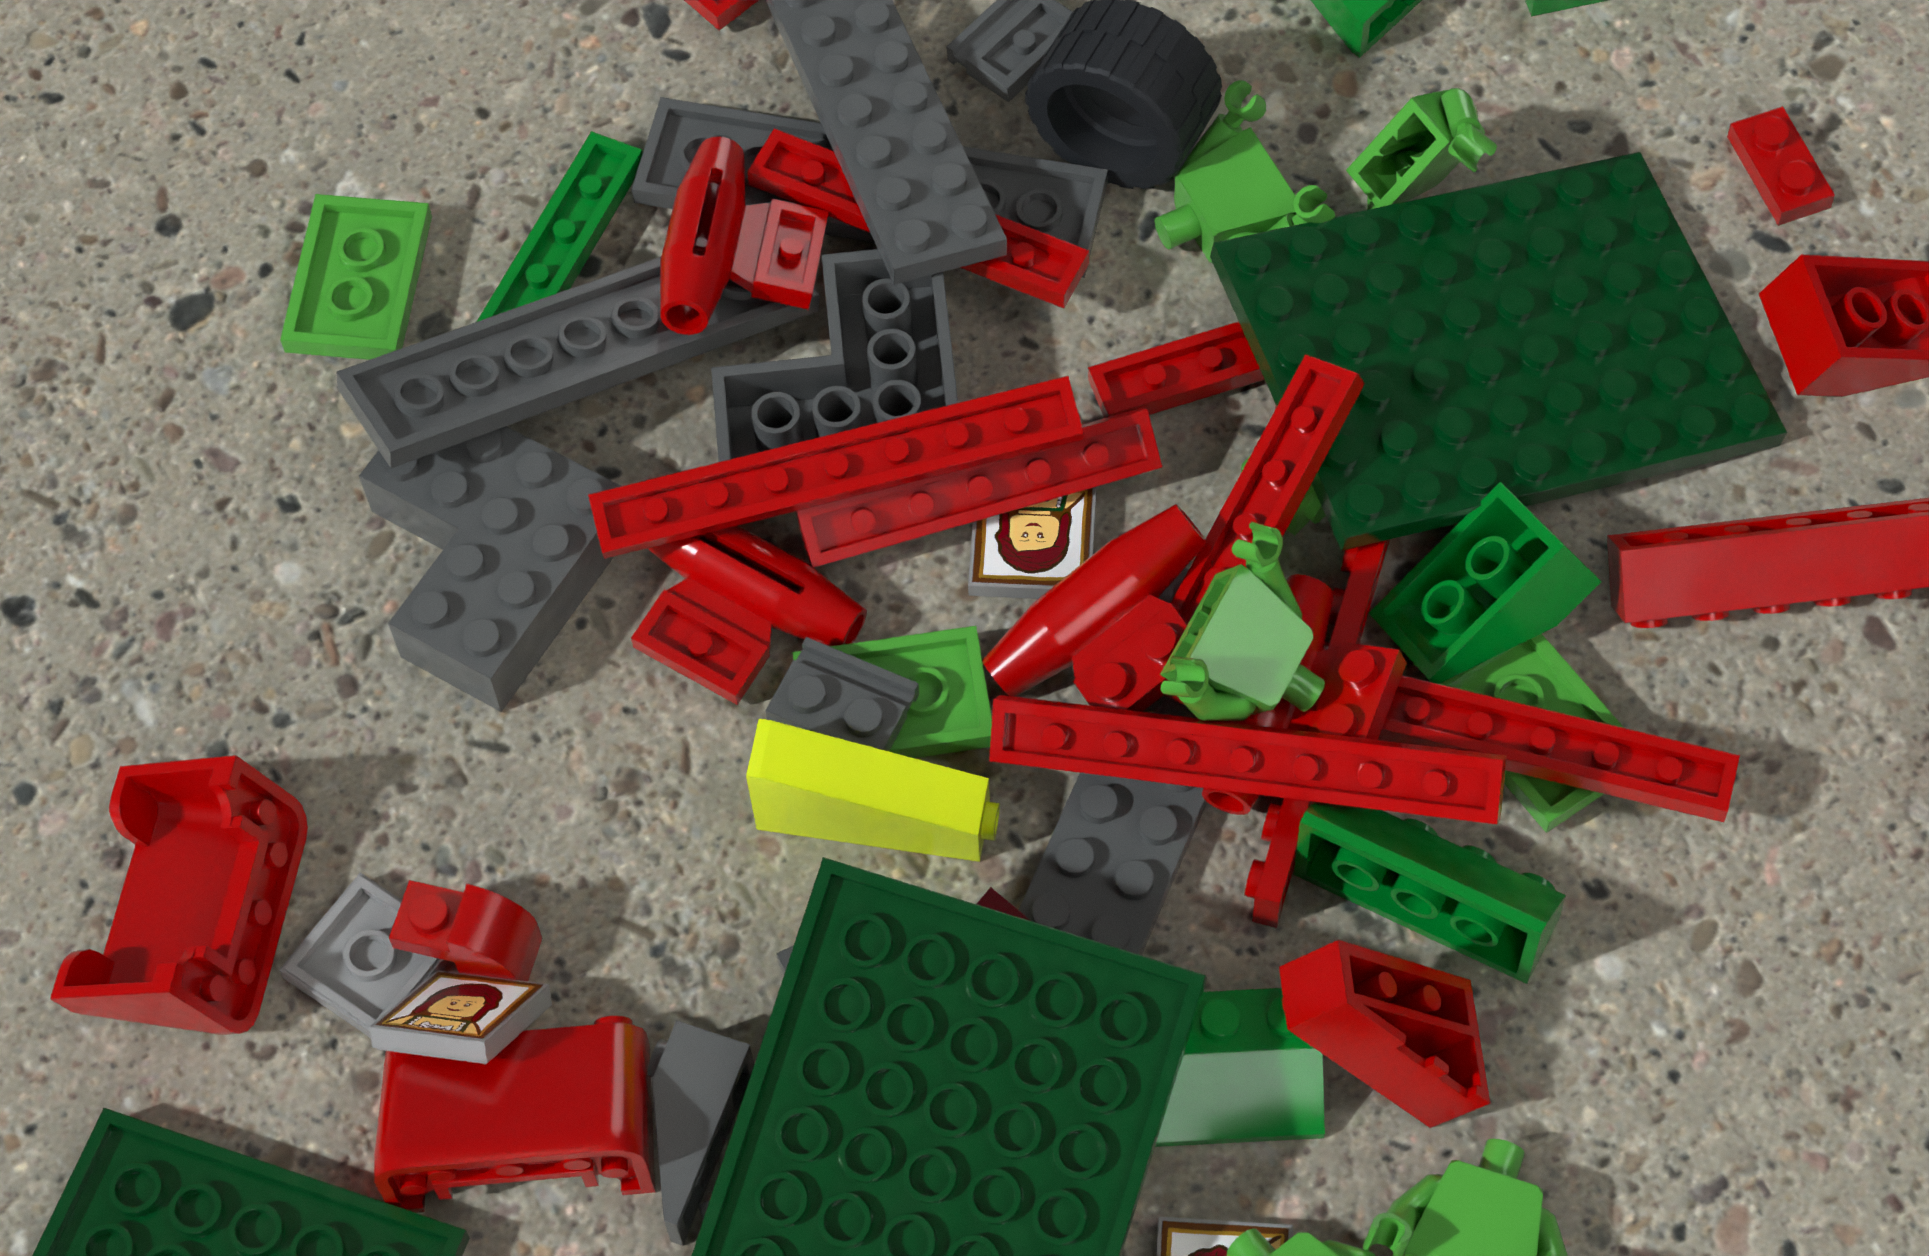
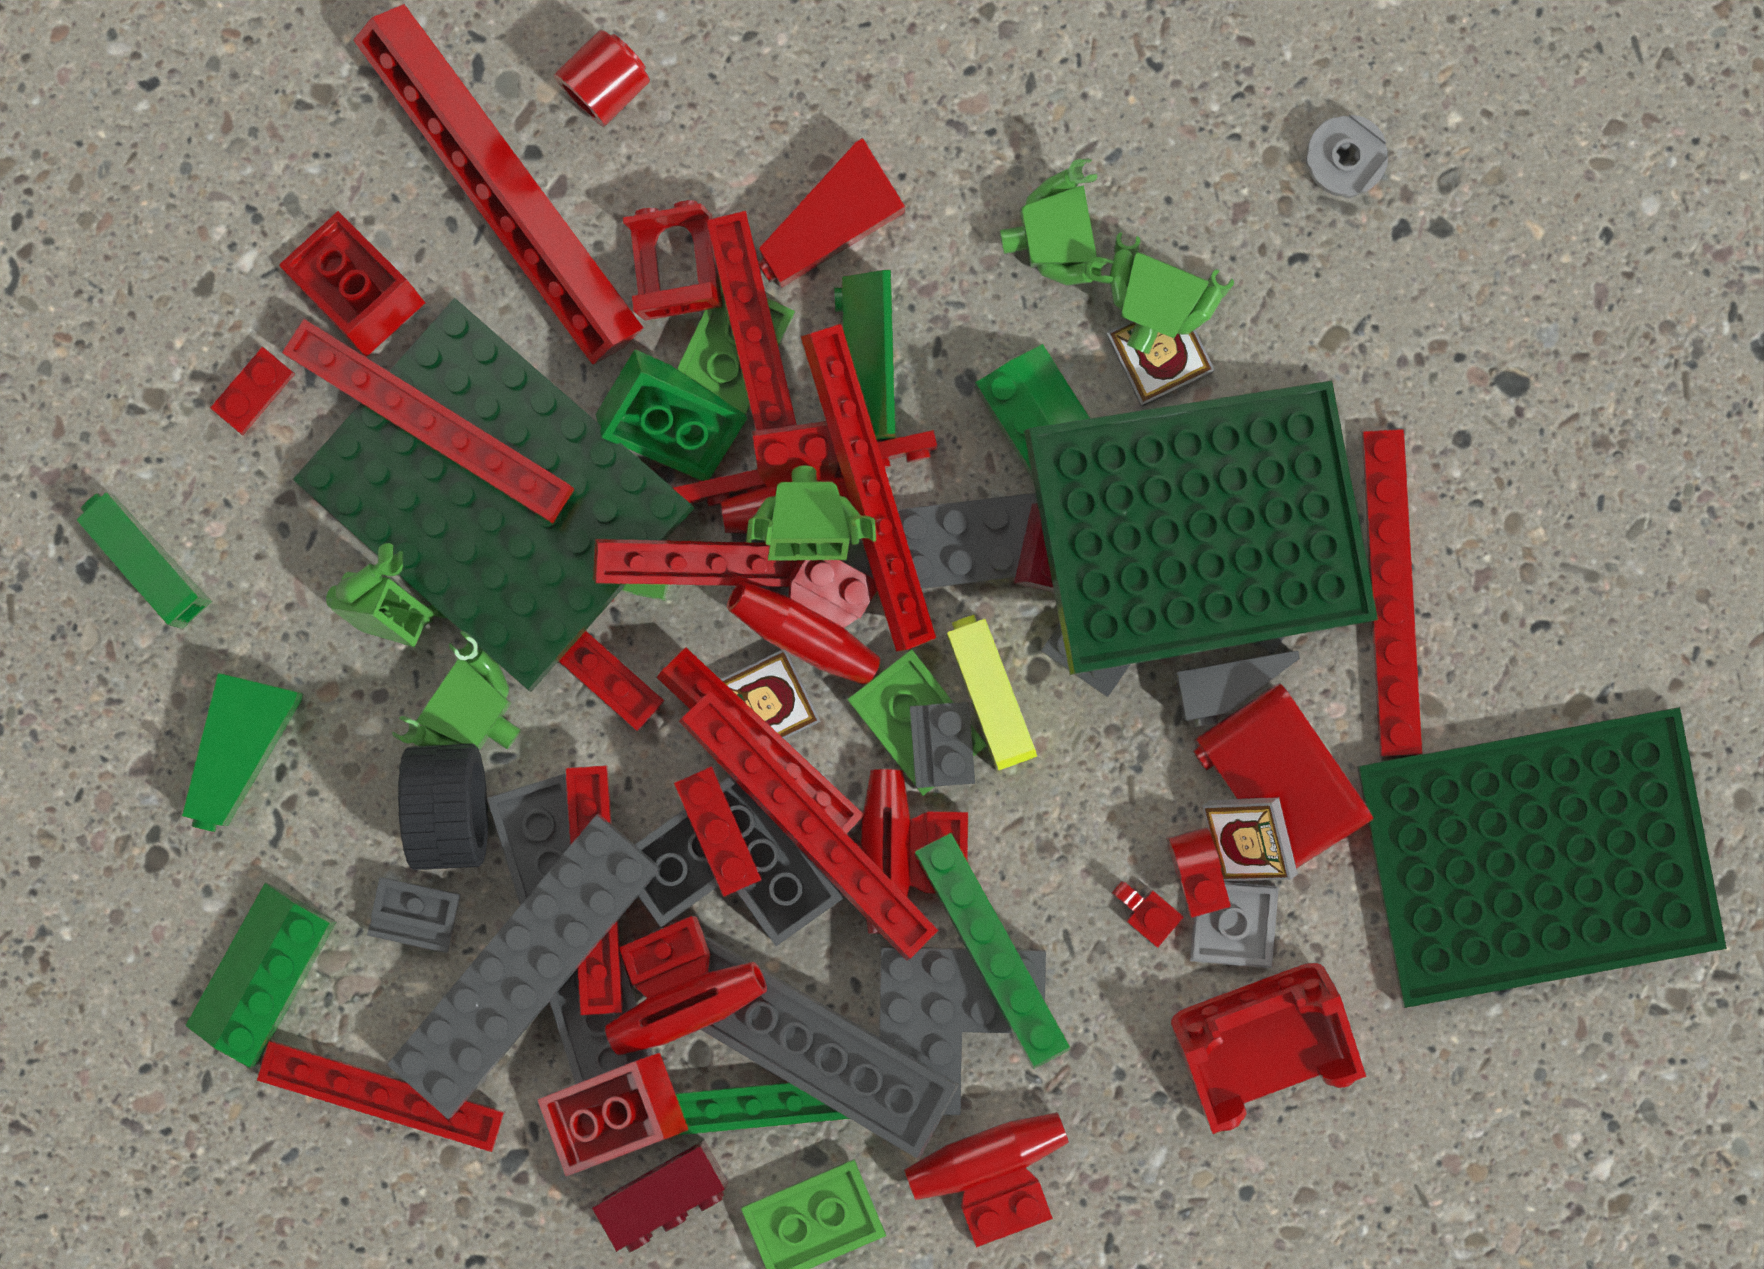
camera: 120 degrees left, 25 degrees up
(263, 497) = (994, 1175): none -> red plate
(455, 856) = (1150, 915): none -> red plate
(499, 117) = (661, 1197): none -> dark red brick
(532, 604) = (992, 951): none -> green plate
(630, 115) = (612, 1114): none -> red slope
(897, 366) = (717, 831): none -> red plate
(1391, 1026) = (977, 328): red wedge -> none
(1626, 305) = (428, 421): none -> red plate
(1662, 945) = (836, 214): none -> red slope
(1757, 698) = (645, 230): none -> red panel

